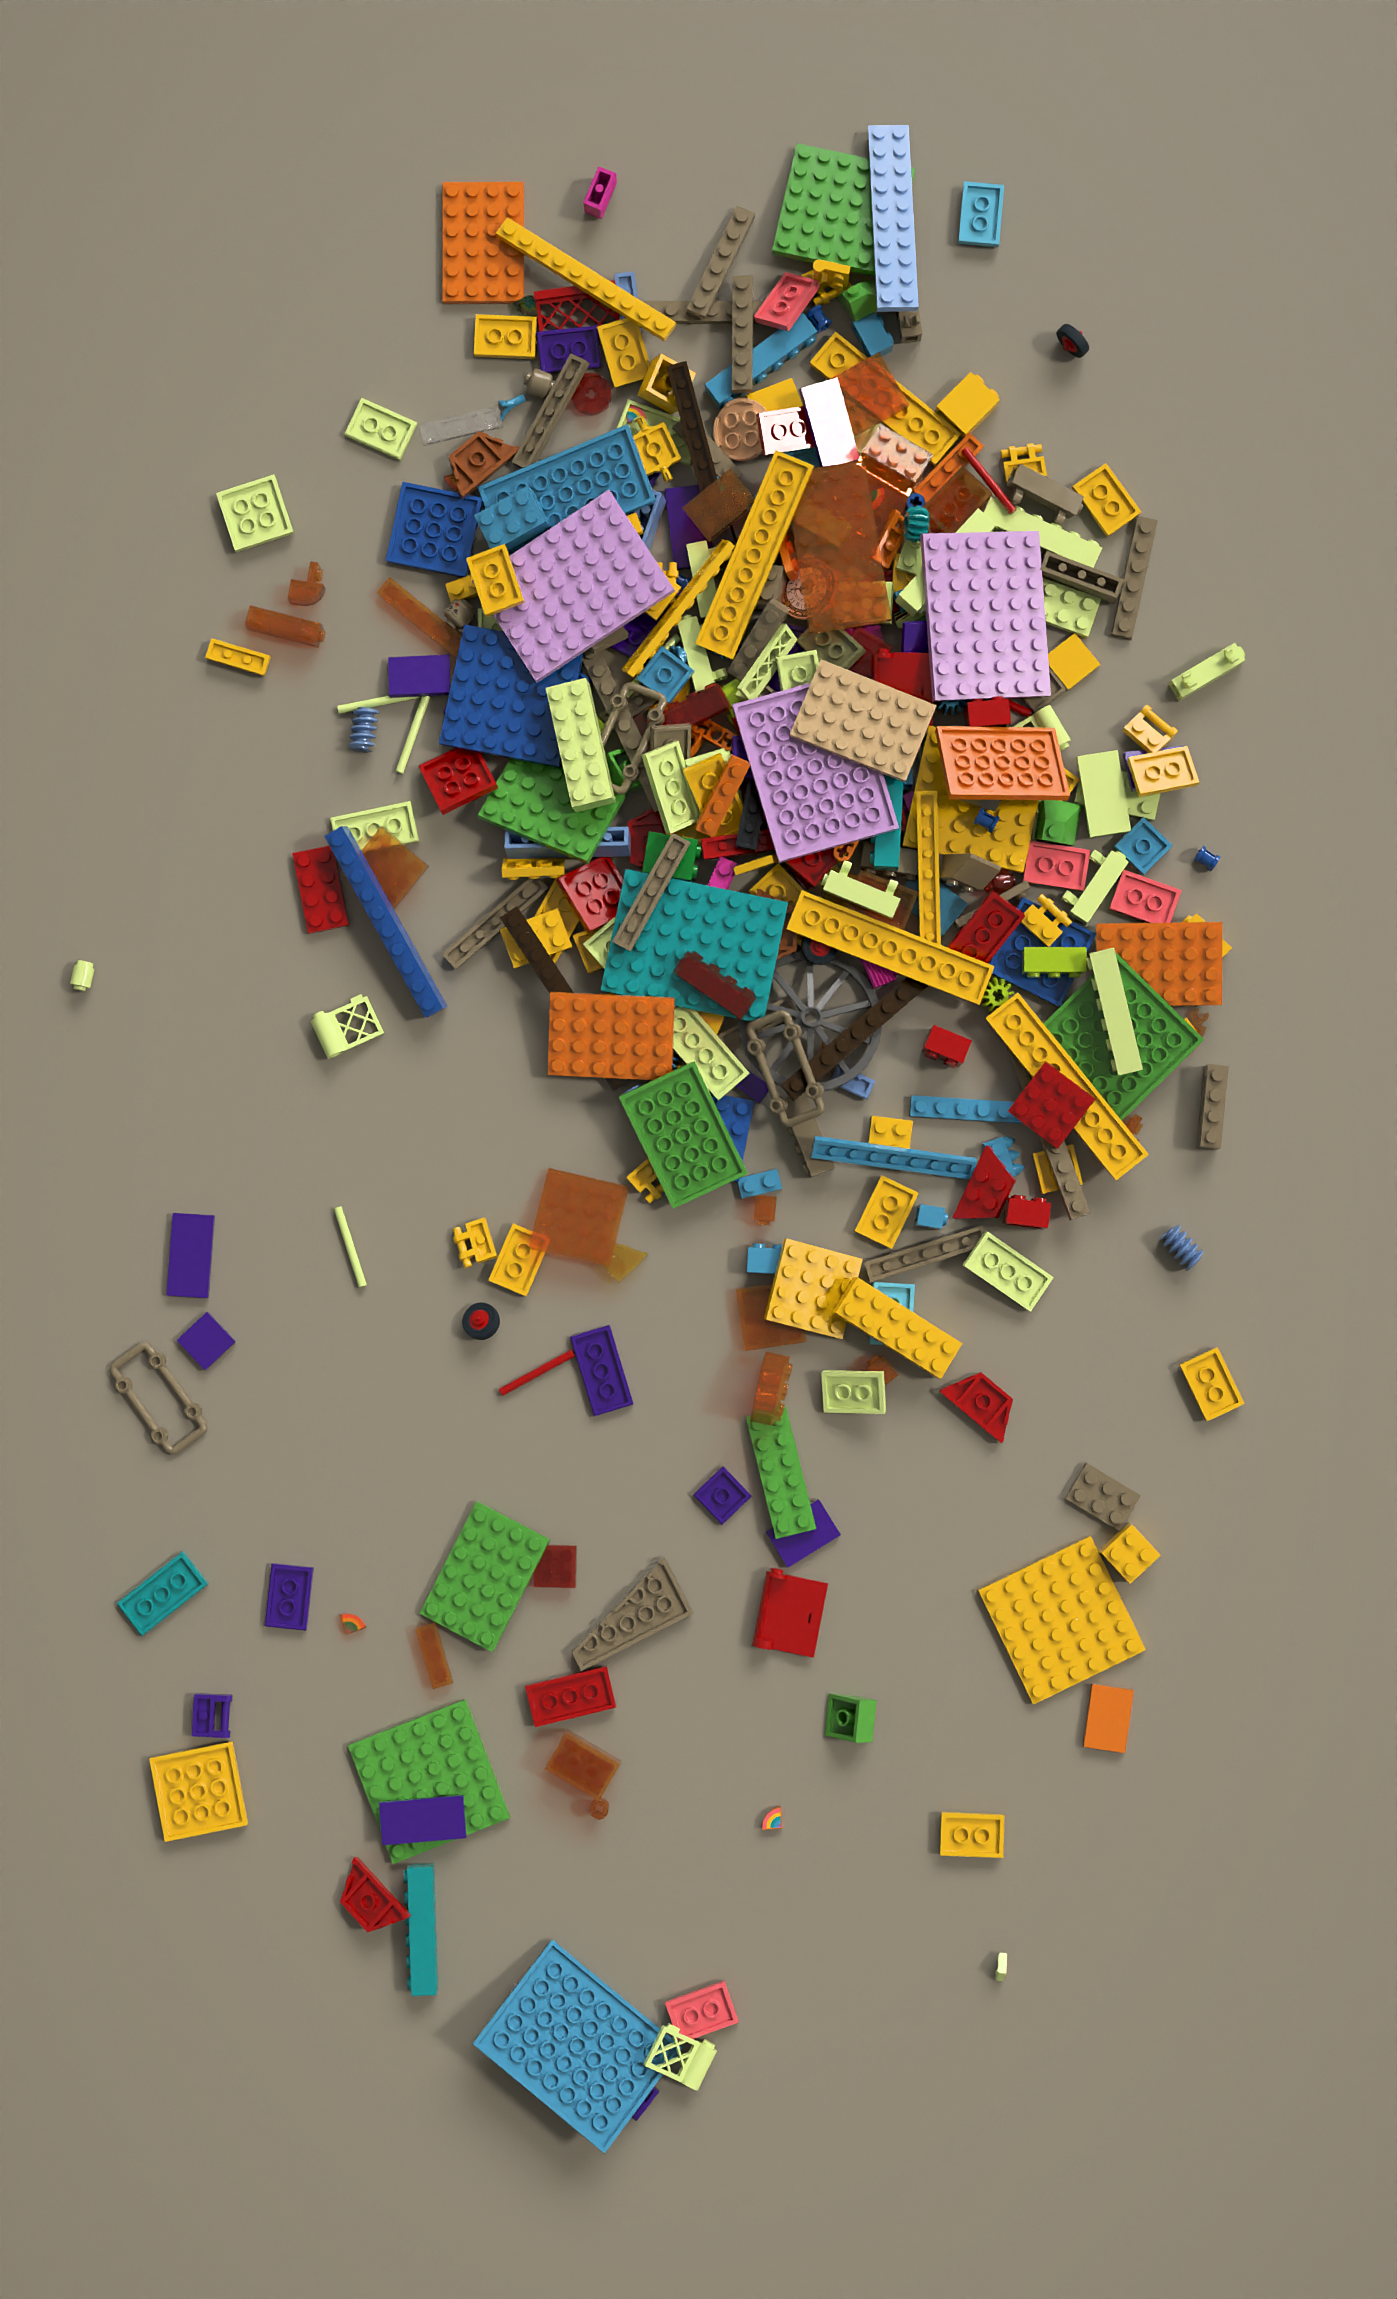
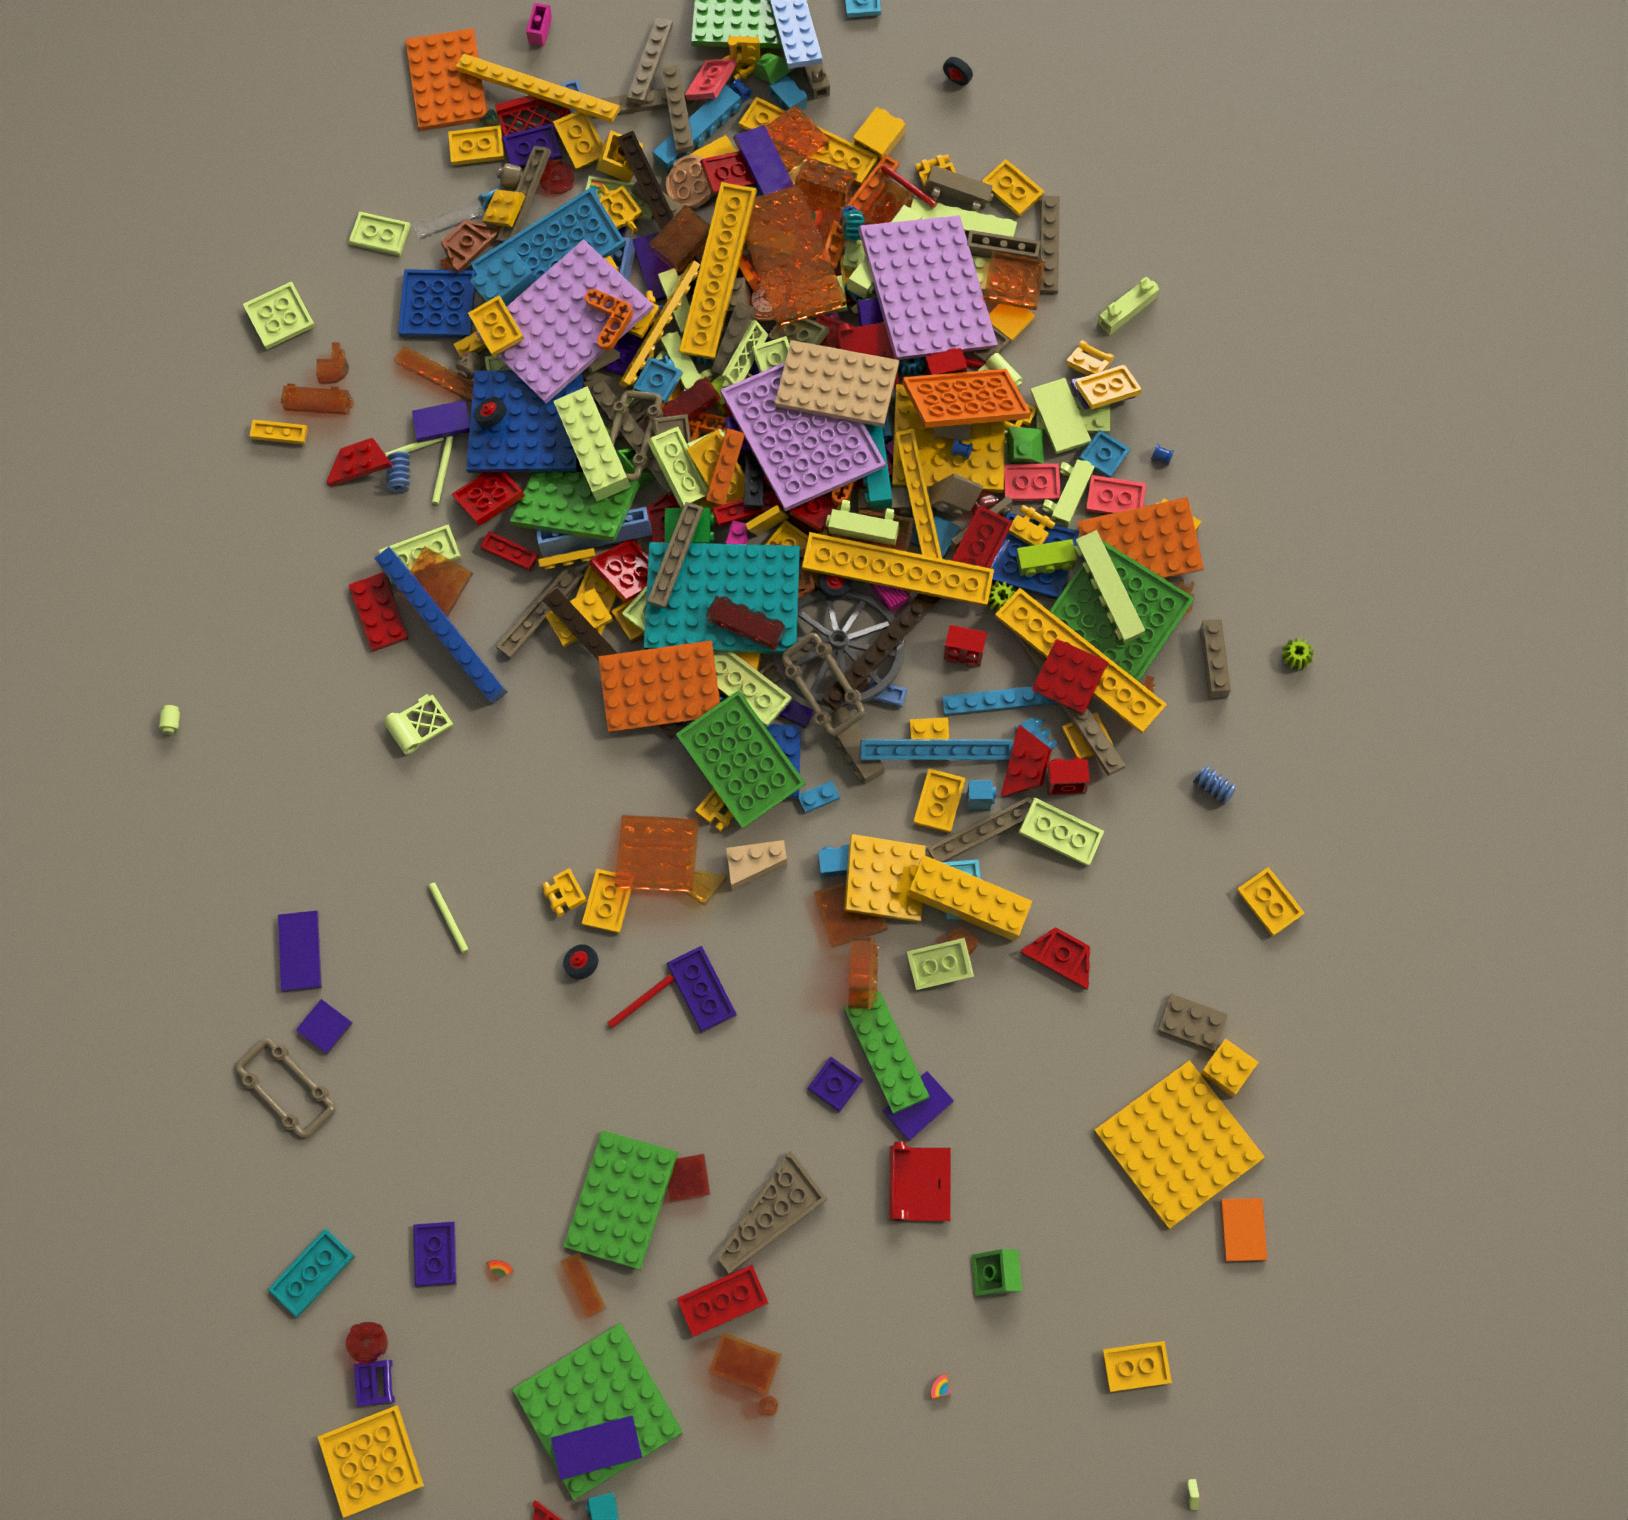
camera: 10 degrees left, 15 degrees down
(203, 1664) = (363, 1331): none -> clear red plate
(321, 710) = (358, 461): none -> red wing
(472, 844) = (509, 551): none -> red plate
(474, 683) = (490, 412): none -> black wheel
(525, 425) = (503, 208): none -> yellow plate
(630, 592) = (615, 317): none -> orange beam
(678, 1245) = (754, 861): none -> tan wedge
(765, 1209) = (827, 816): clear orange brick -> none
(1084, 620) = (1014, 280): none -> clear orange plate
(1296, 1112) = (1298, 647): none -> lime gear

